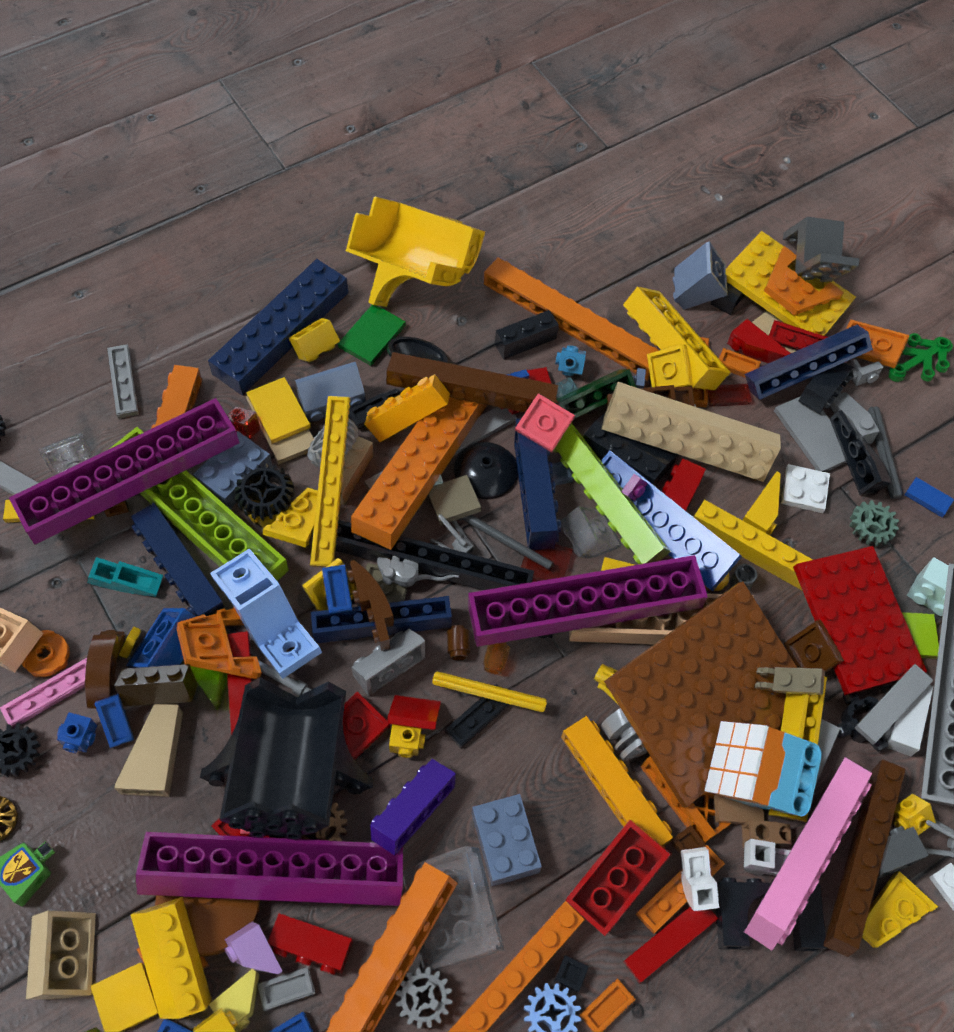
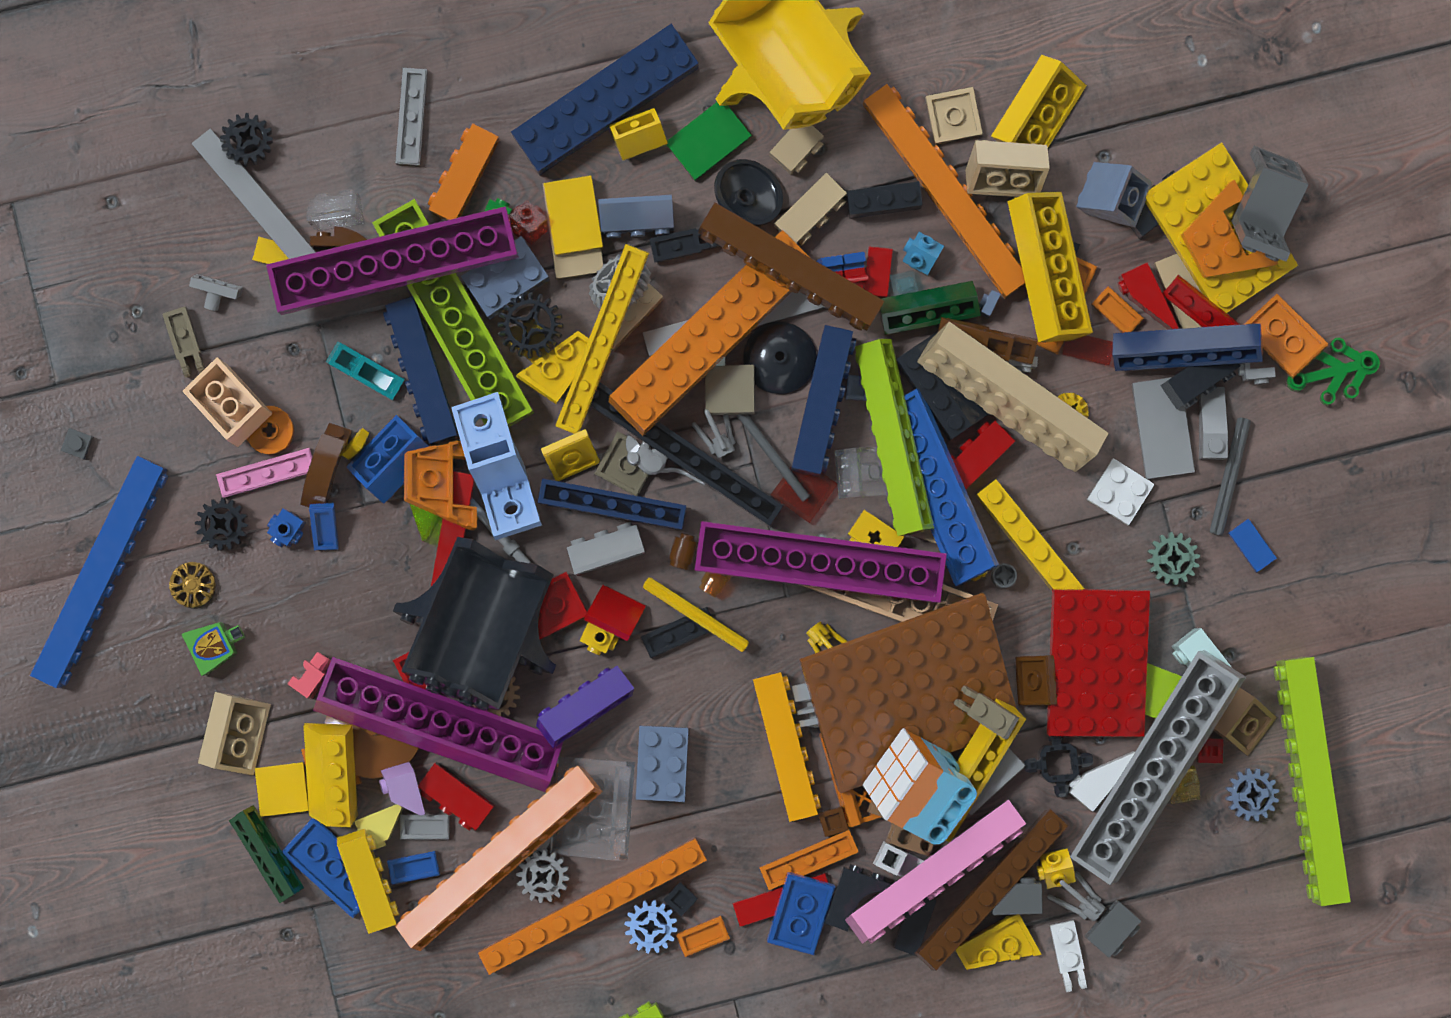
camera: 25 degrees right, 25 degrees up
(125, 873) = (313, 677): none -> coral hips
(154, 754) = (354, 572): tan slope -> none
(156, 685) = (372, 508): dark brown brick -> none
(337, 589) = (574, 466): blue tile -> none
(372, 599) = (604, 483): reddish brown slope -> none
(407, 408) = (711, 272): light orange brick -> none
(443, 318) = (796, 147): none -> tan brick
(476, 348) = (812, 209): none -> tan brick
(544, 422) = (851, 345): coral tile -> none
(556, 270) = (953, 115): none -> tan tile
(611, 282) = (1006, 168): none -> tan brick
(617, 250) = (1040, 104): none -> yellow slope
(618, 877) = (751, 834): red brick -> none
(634, 487) = (922, 448): magenta plate -> none
(670, 367) = (1022, 310): yellow tile -> none
(694, 947) = (800, 913): none -> blue tile
(697, 880) = (823, 862): white brick -> none
(765, 508) = (1059, 508): yellow slope -> none
(864, 464) = (1194, 491): black wedge -> none
(893, 704) = (1088, 760): light grey tile -> none

